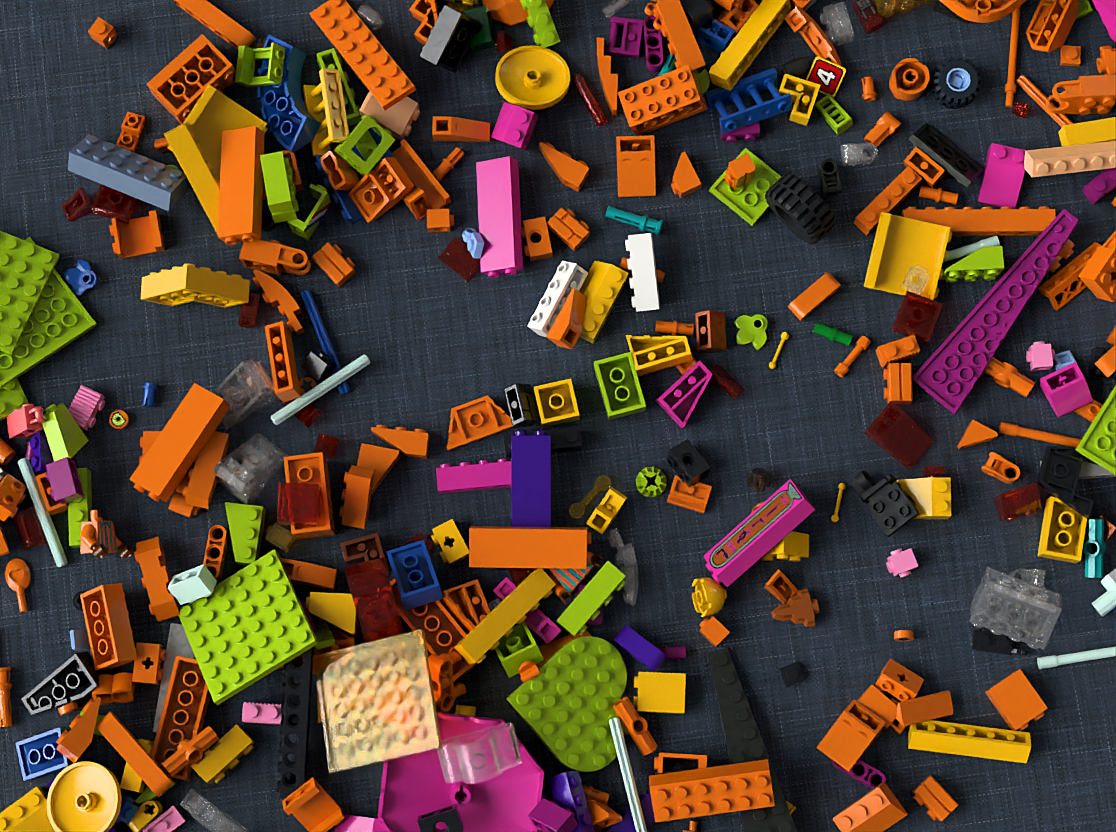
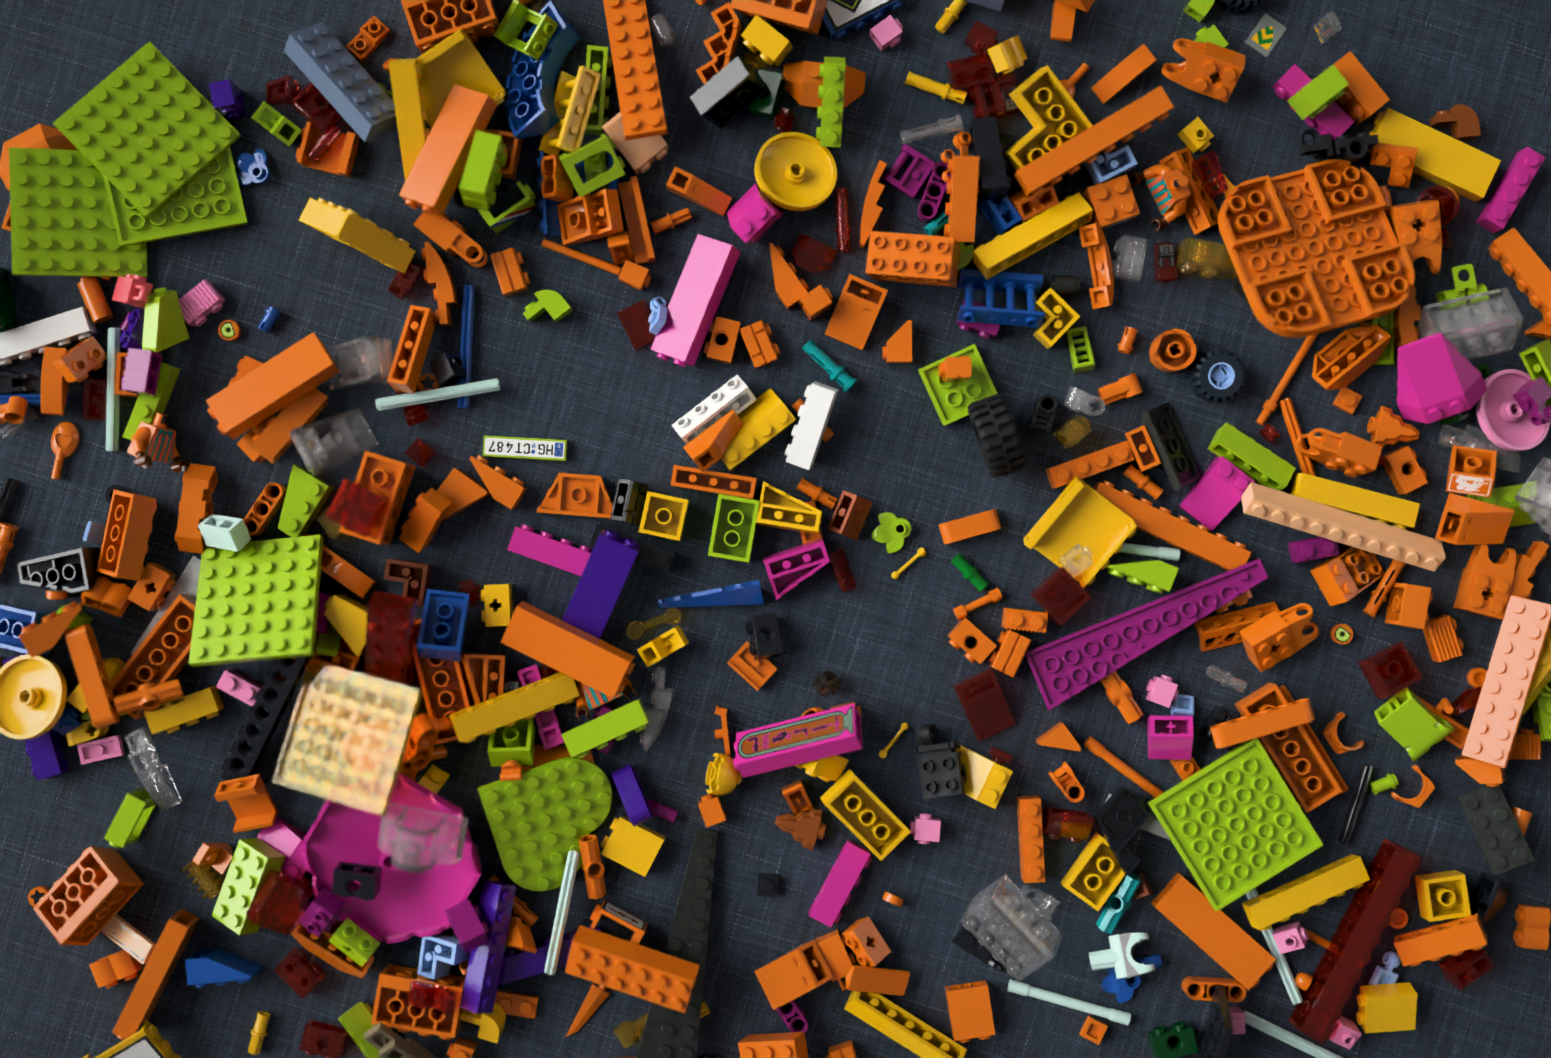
camera: 20 degrees right, 10 degrees up
(37, 230) = (228, 99): none -> dark purple brick
(86, 233) = (276, 123): none -> lime brick
(132, 230) = (324, 143): none -> clear red axle
(377, 273) = (549, 301): none -> lime brick
(387, 226) = (581, 256): none -> orange bar
(412, 402) = (525, 448): none -> tile
(577, 136) = (812, 254): none -> clear red slope
(583, 356) = (713, 482): none -> orange brick
(599, 172) = (816, 302): none -> orange brick
(643, 443) = (738, 594): none -> blue wedge
(651, 491) = (725, 626): lime gear -> none
(692, 562) = (723, 733): none -> orange piece
(827, 75) = (1091, 307): sticker -> none
(845, 572) = (865, 814): none -> yellow brick
(852, 643) = (839, 883): none -> dark pink brick
(860, 179) = (1072, 431): none -> clear yellow brick
(873, 386) = (983, 645): none -> orange brick
(994, 529) = (1030, 839): none -> orange brick
(1015, 133) = (1251, 457): none -> lime brick
(1088, 322) = (1226, 678): none -> clear axle

